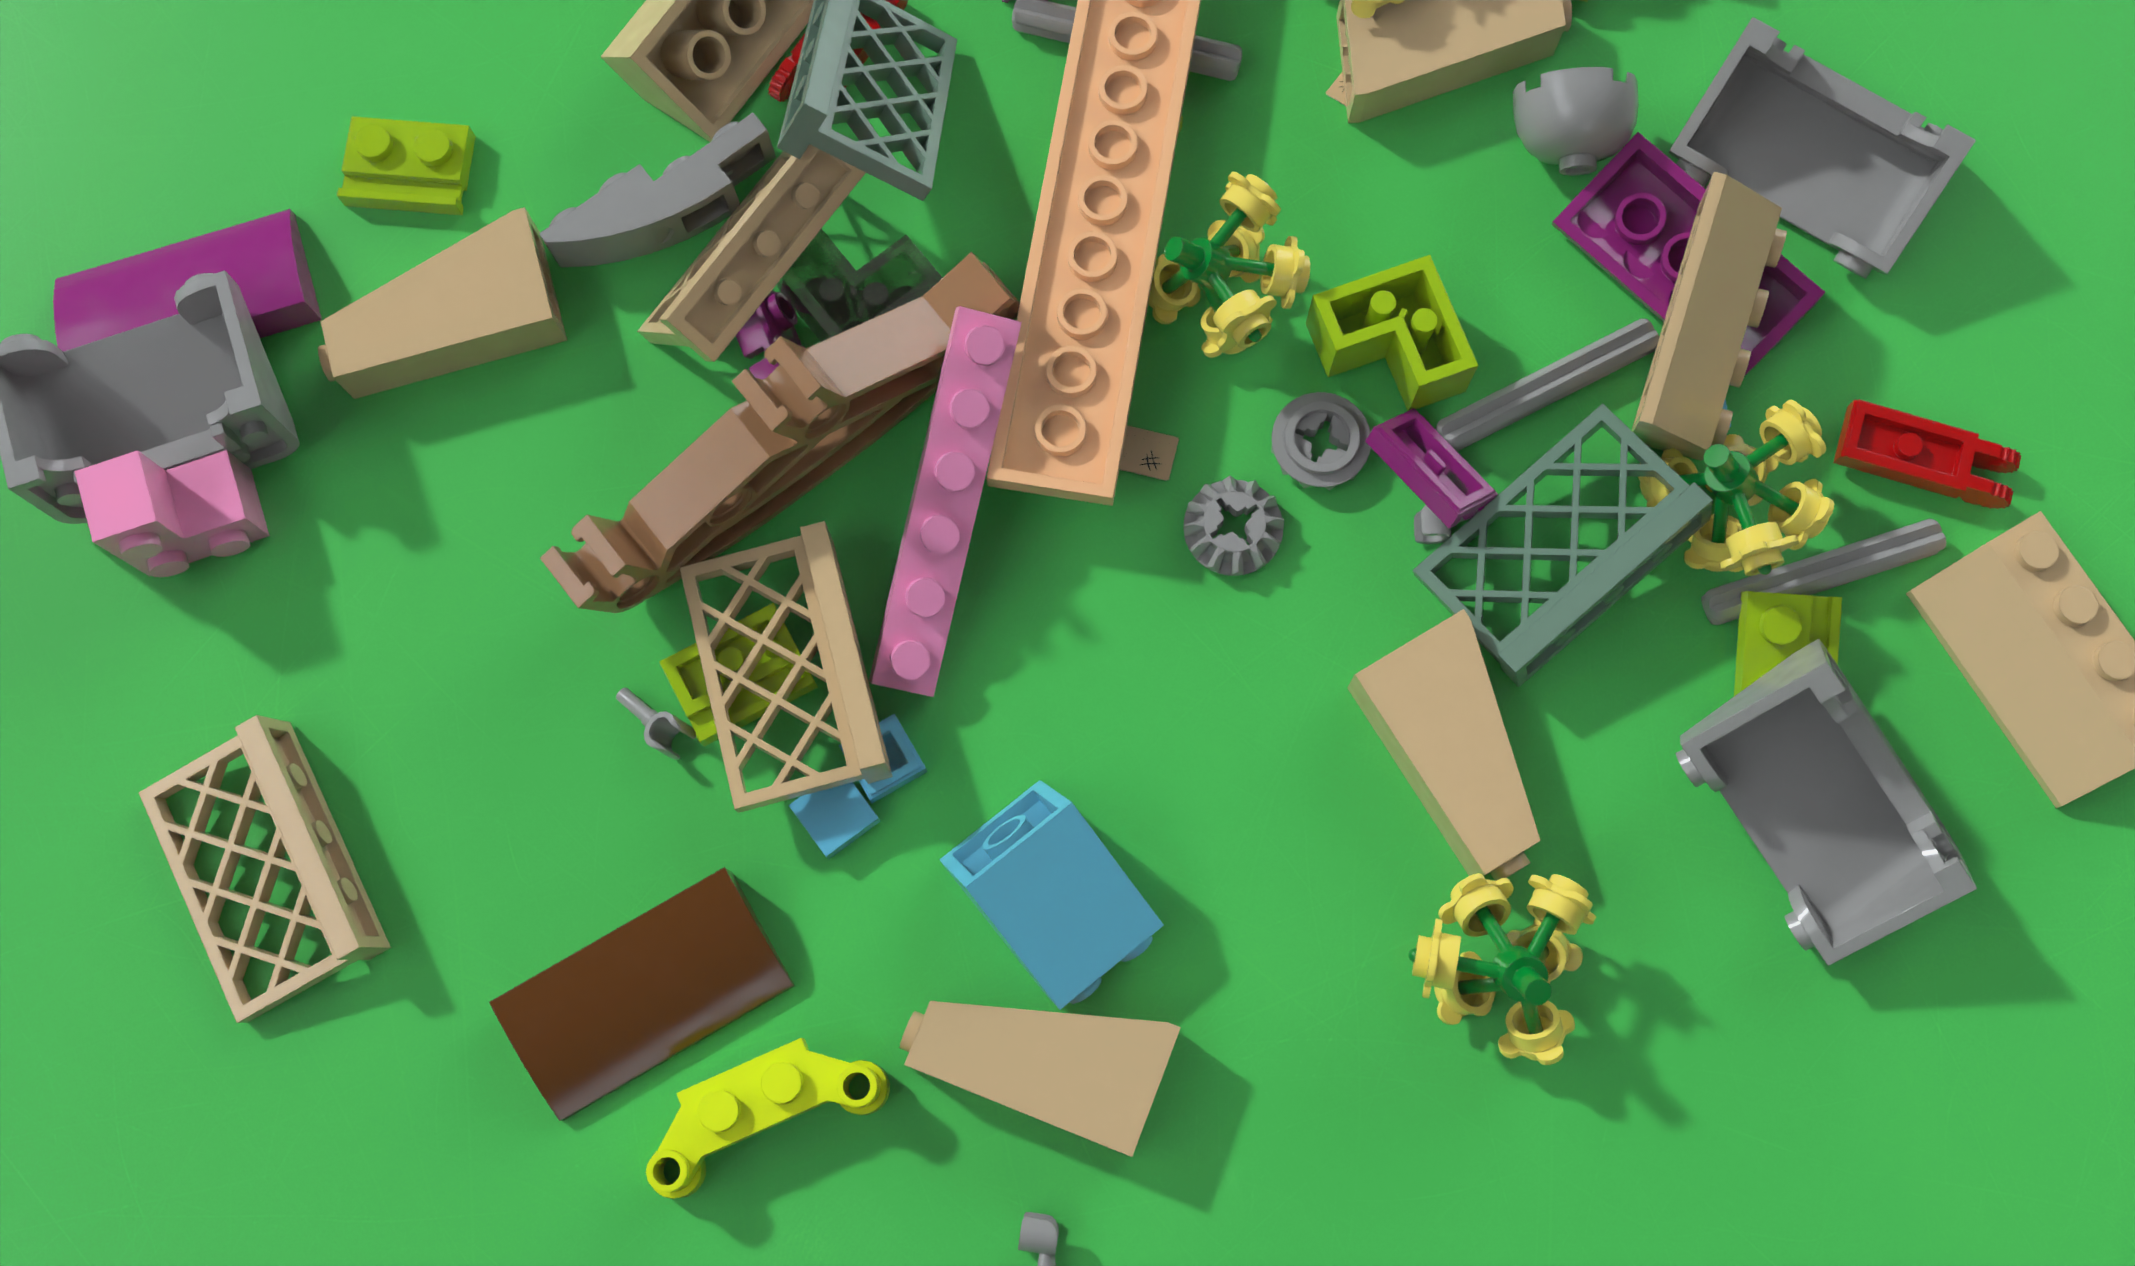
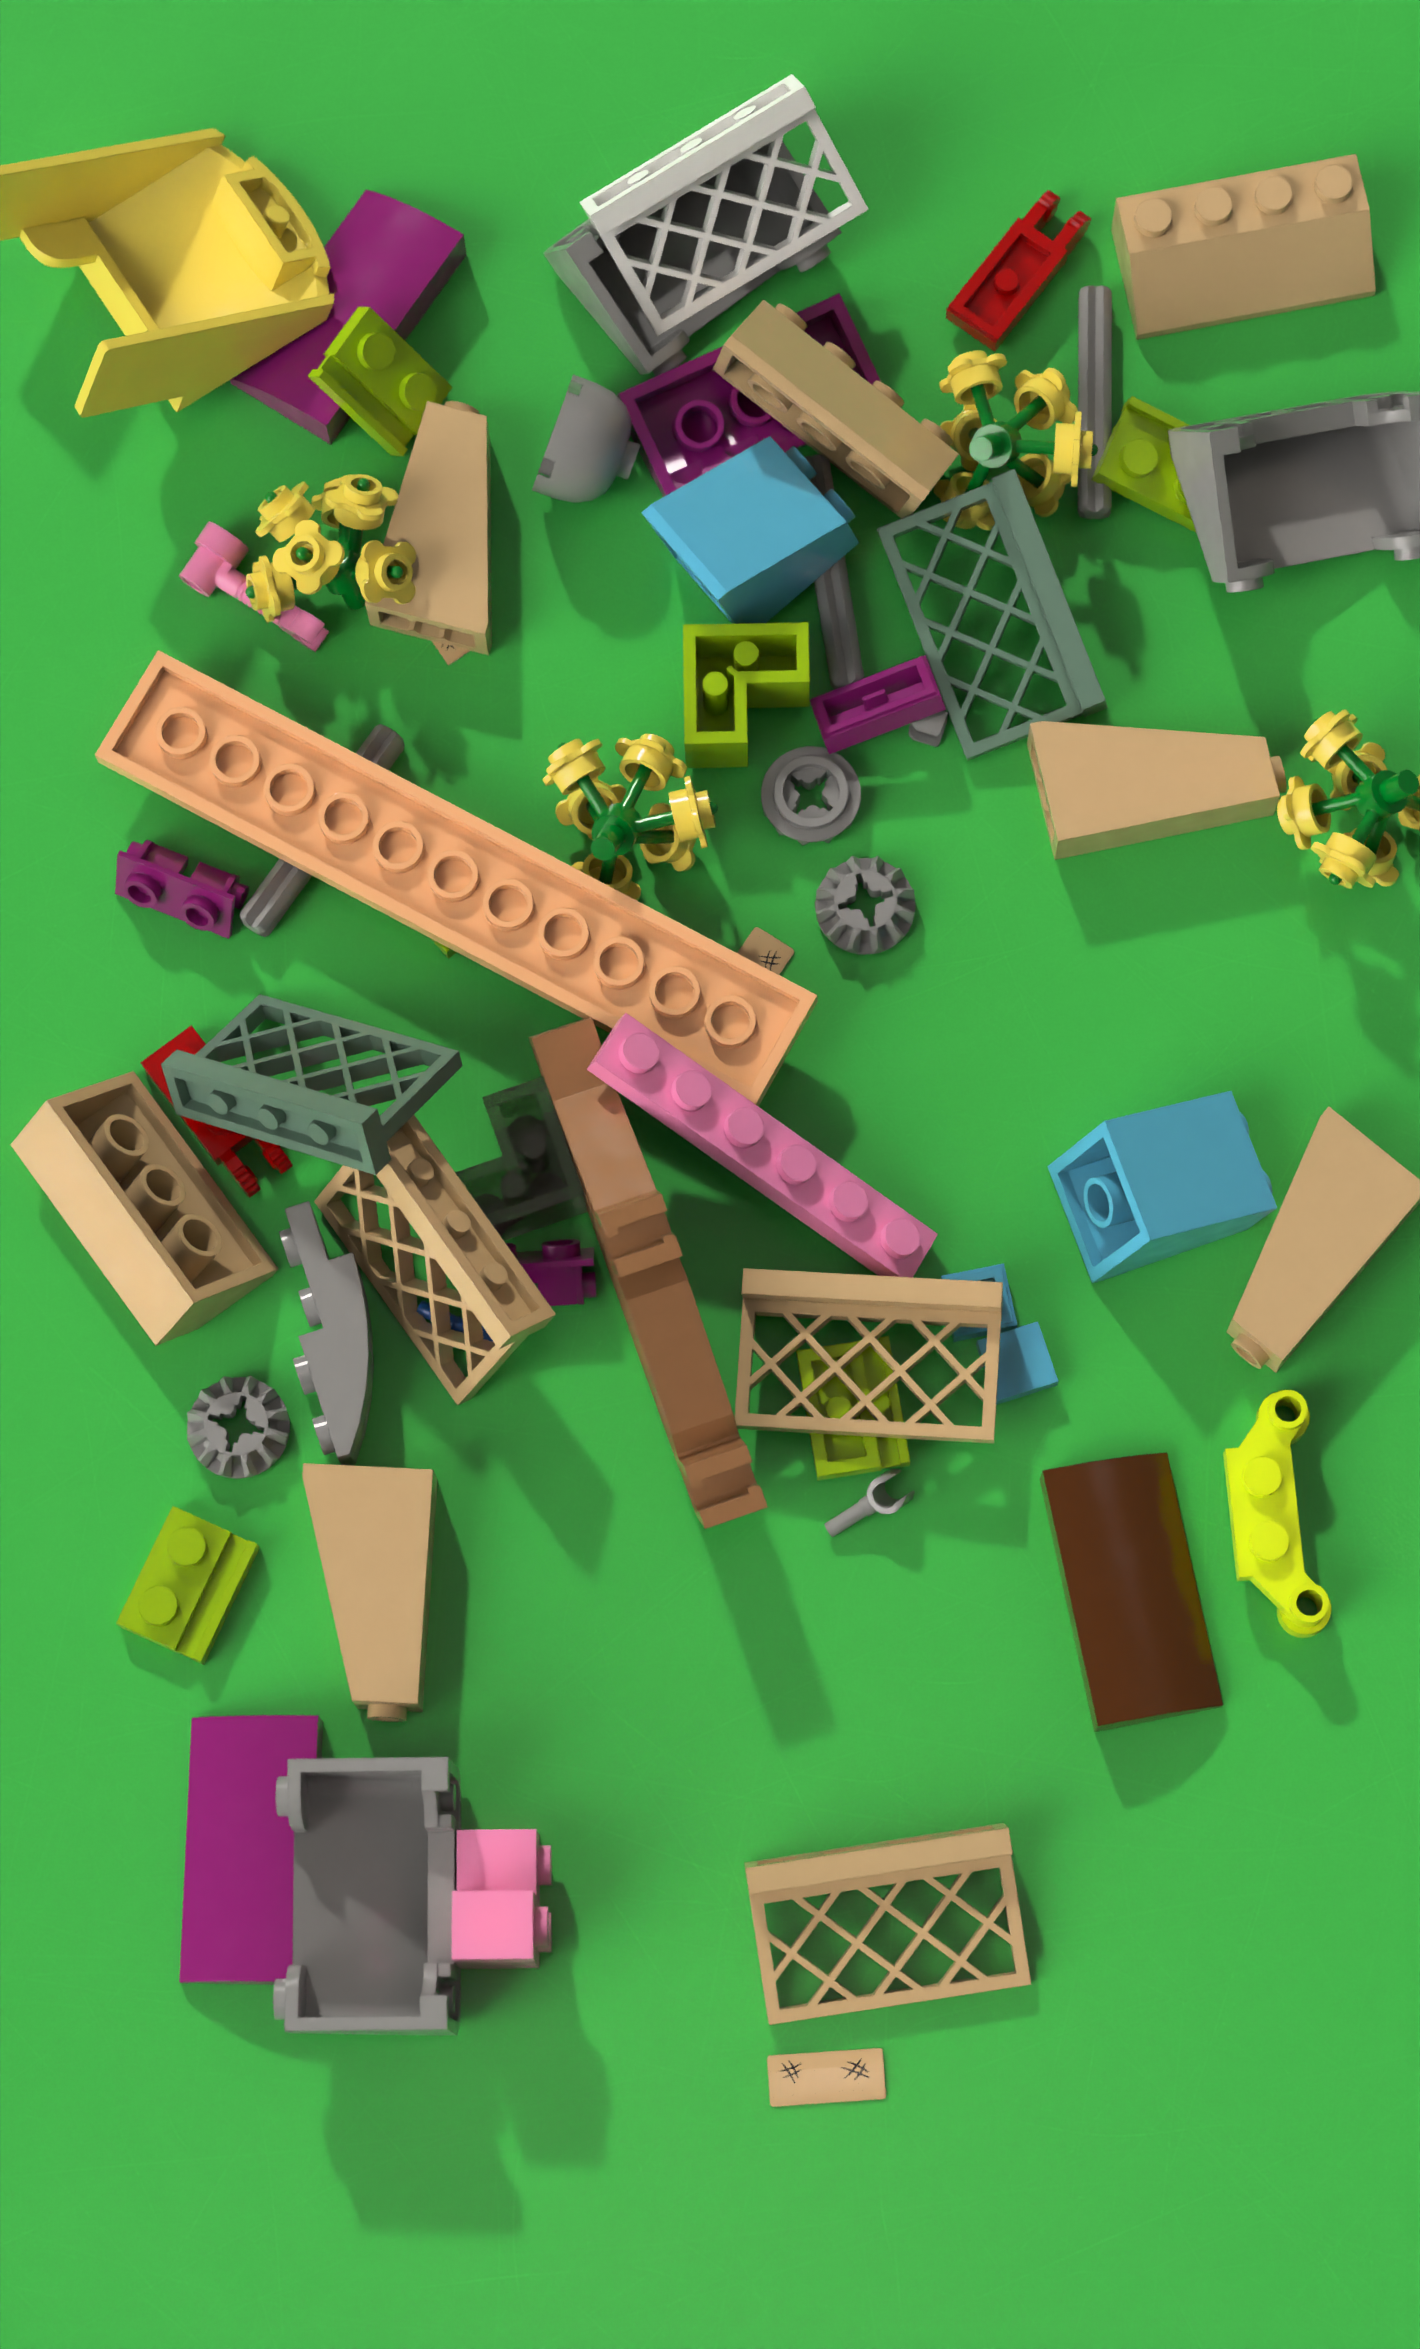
camera: 70 degrees left, 0 degrees up
(111, 863) = (826, 2077): none -> tan sticker
(578, 172) = (253, 1451): none -> light grey gear
(1549, 288) = (754, 530): none -> medium azure slope
(1892, 97) = (700, 158): none -> white fence

